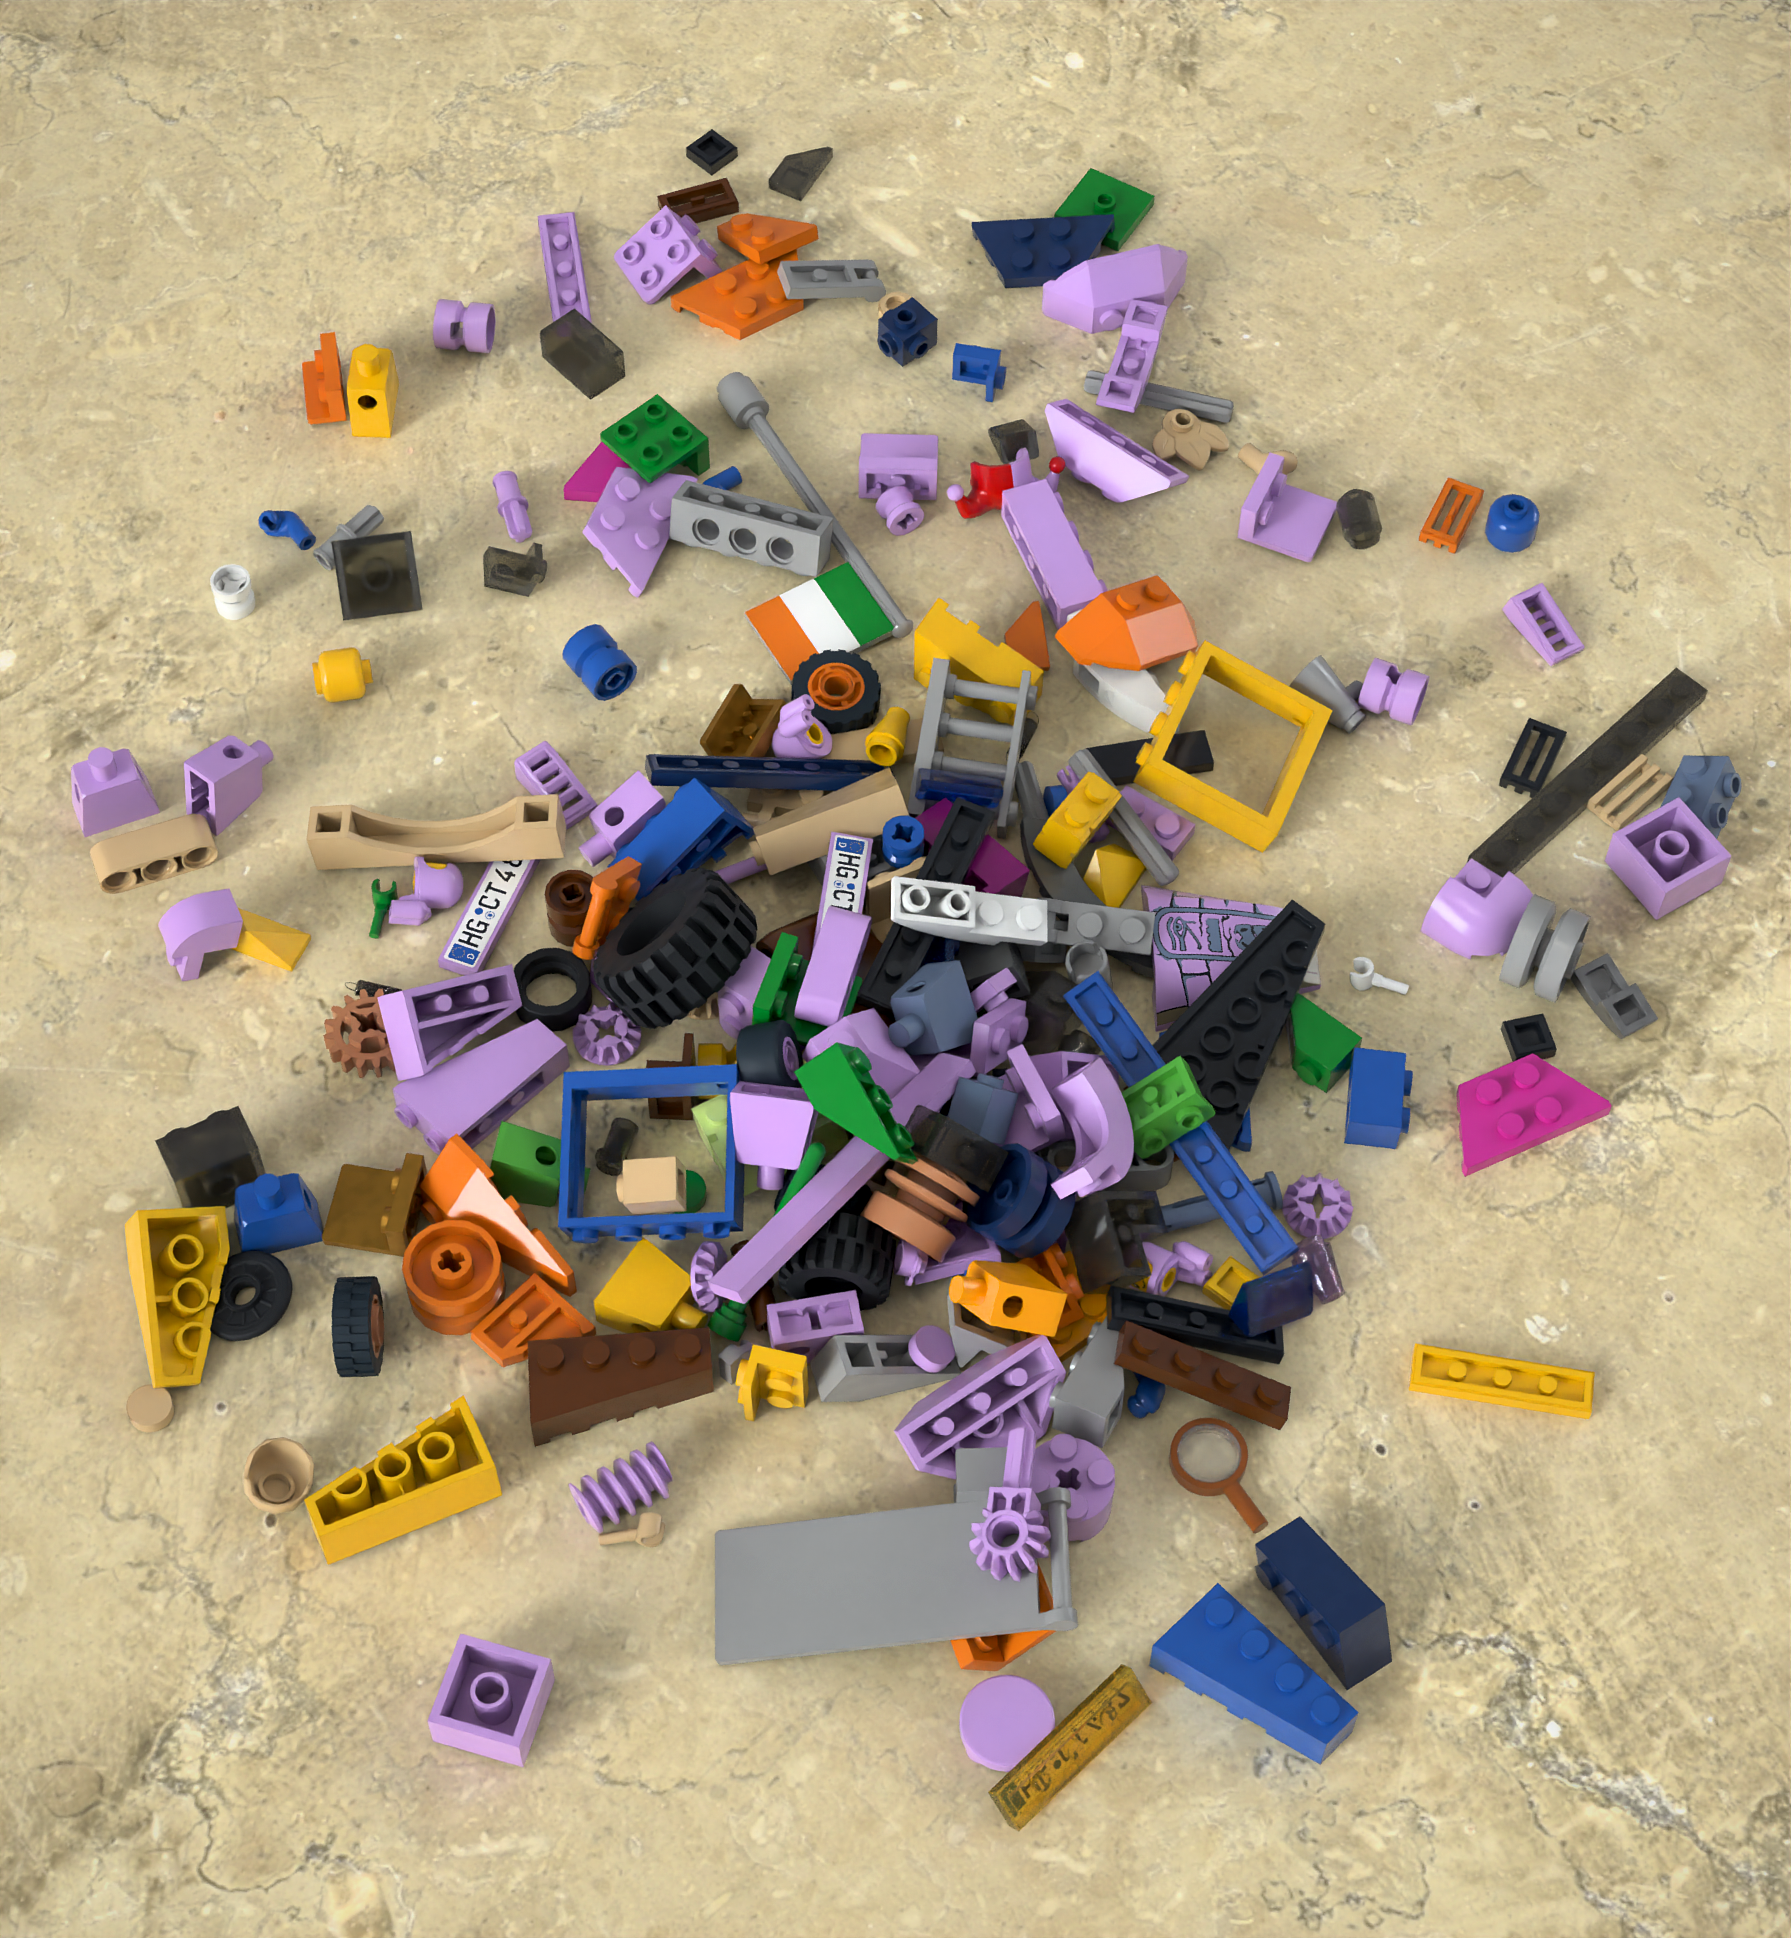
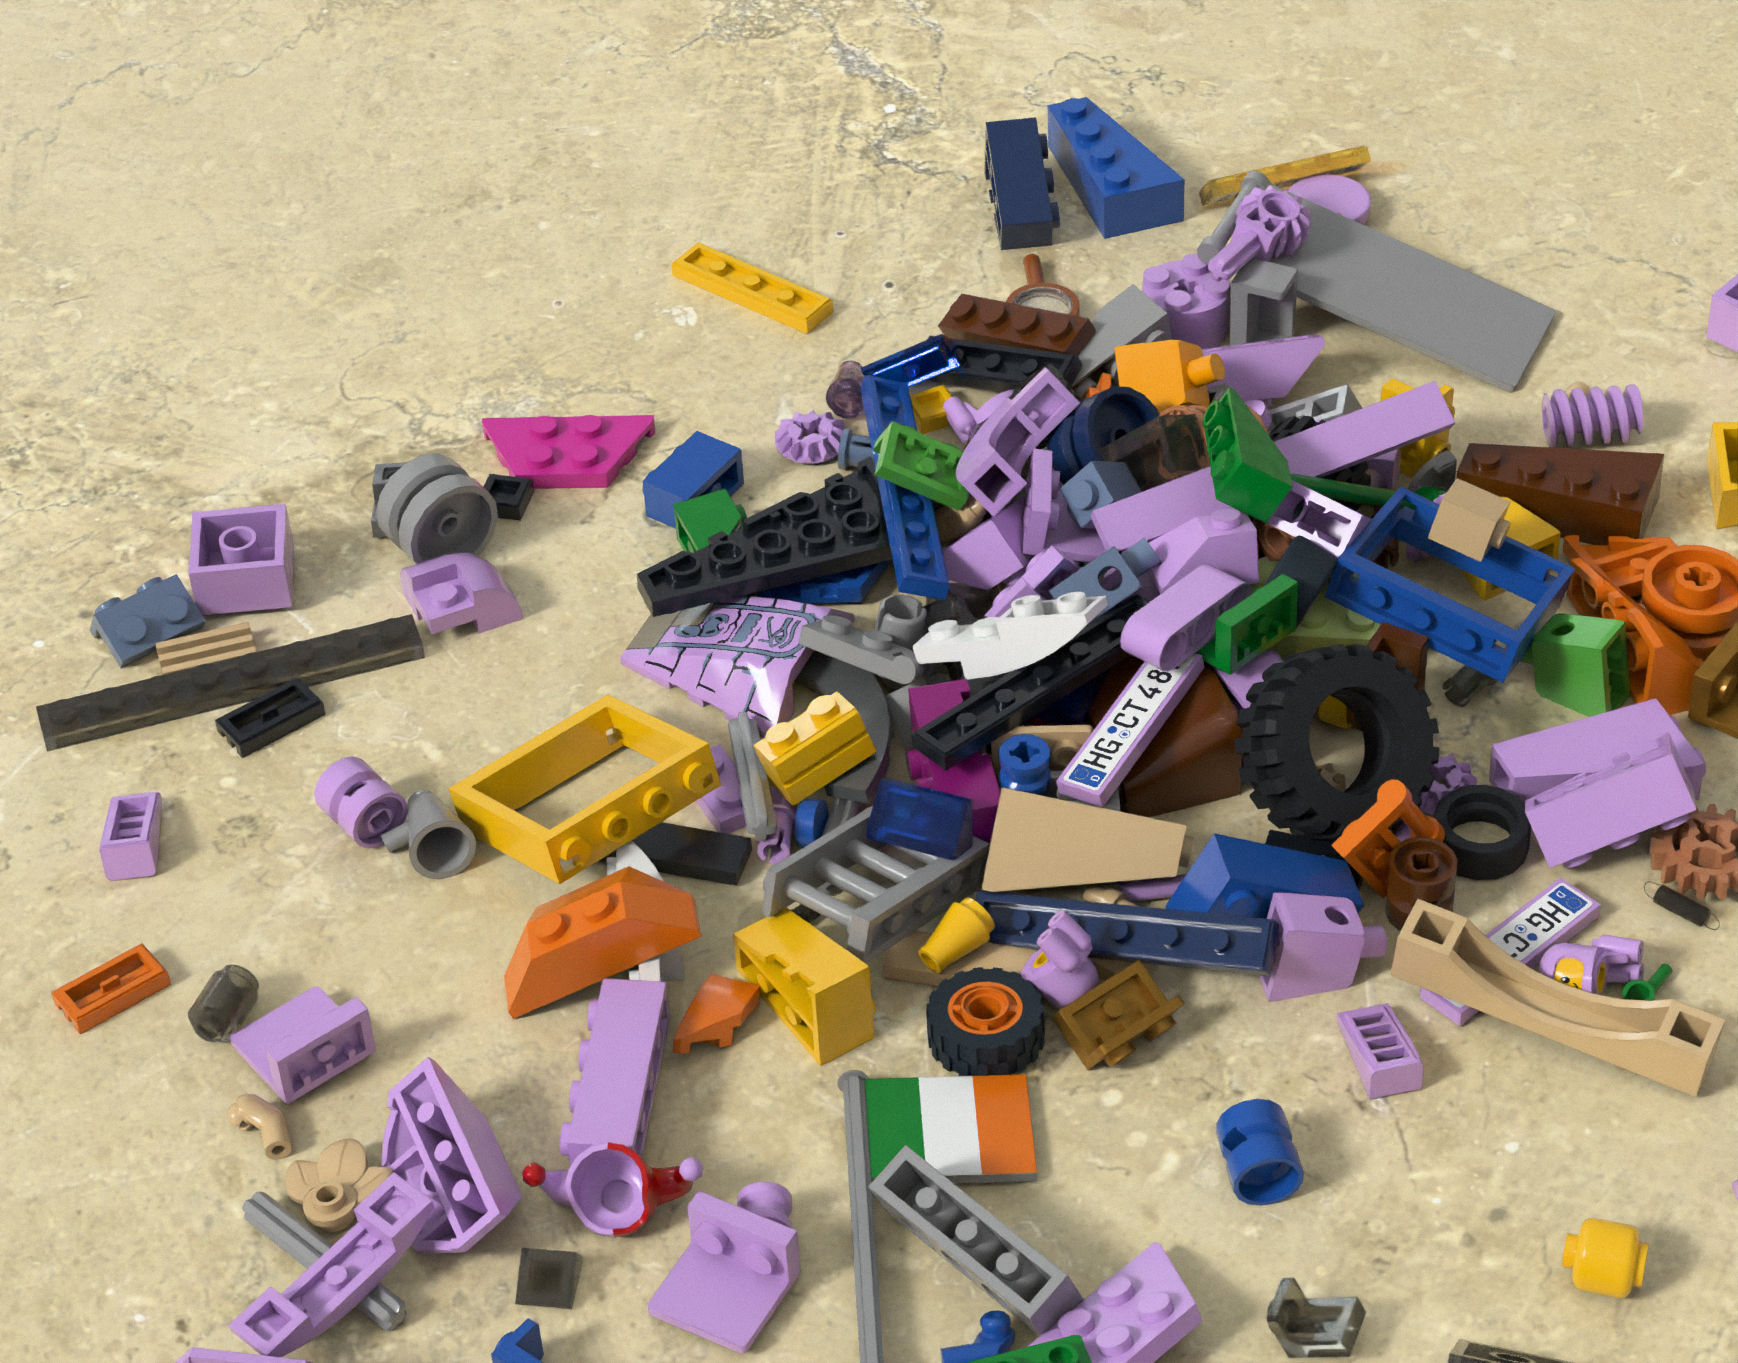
camera: 150 degrees left, 15 degrees down
(1369, 978) = (609, 584): white hand -> none
(1512, 523) = (65, 925): blue head -> none

